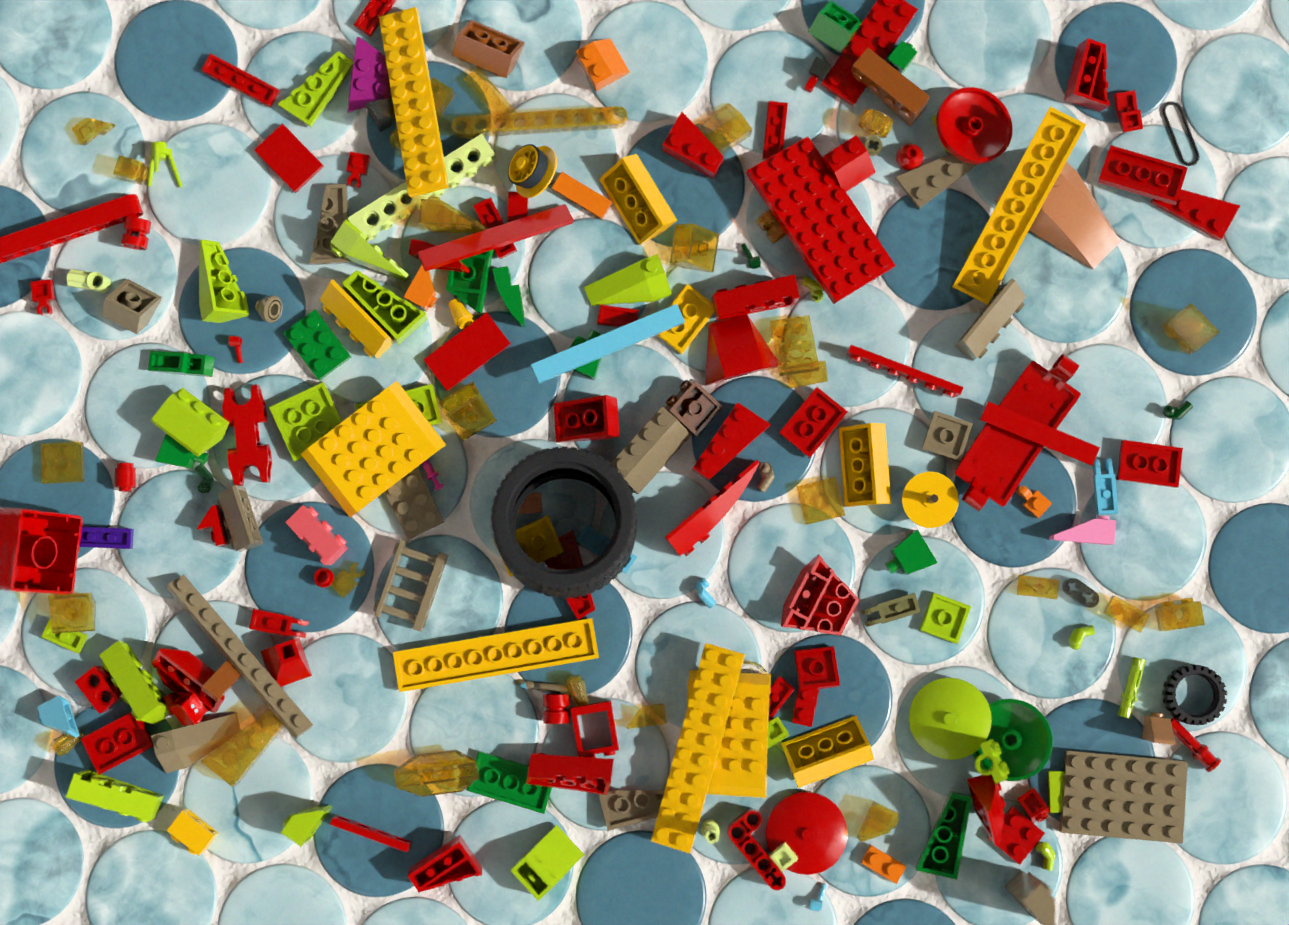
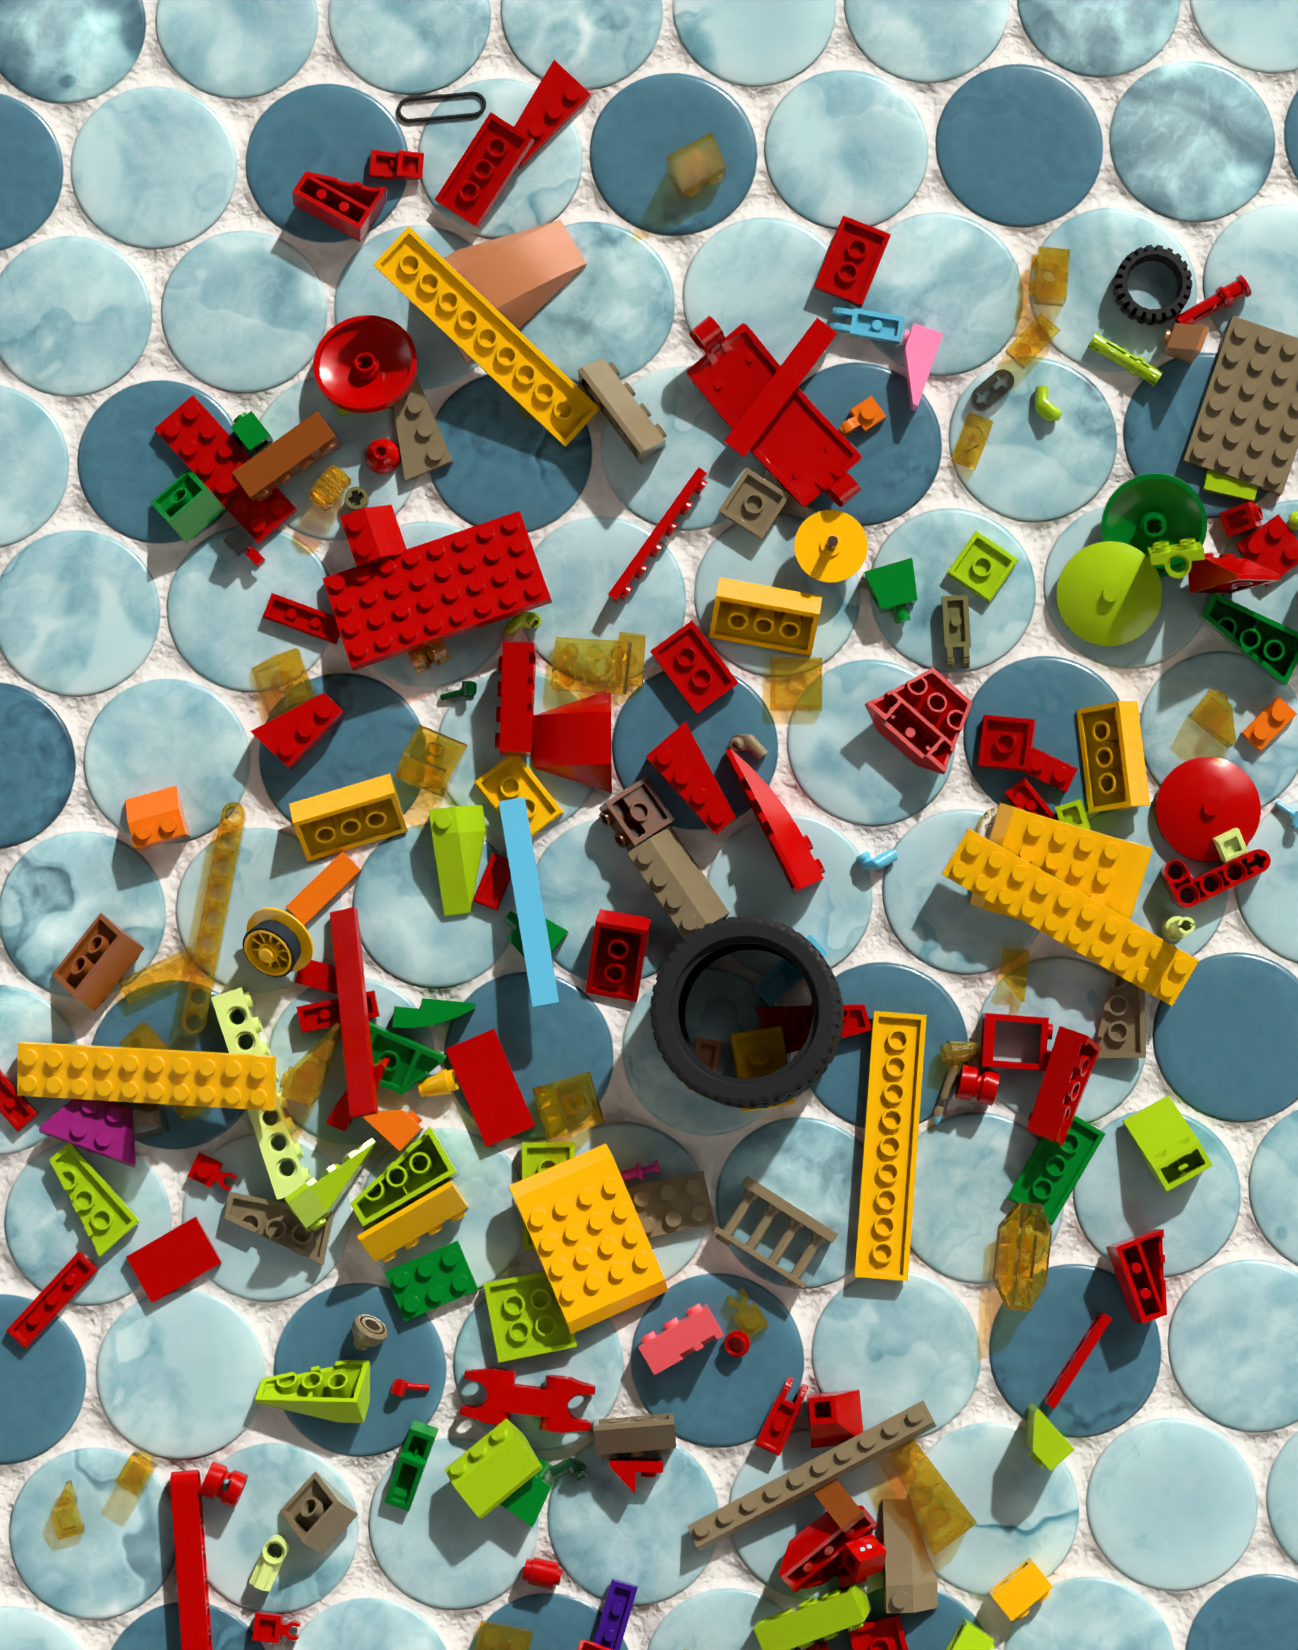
camera: 75 degrees left, 0 degrees up
(159, 153) = (122, 1429): lime plant -> none
(1177, 412) = (796, 210): dark green arm -> none

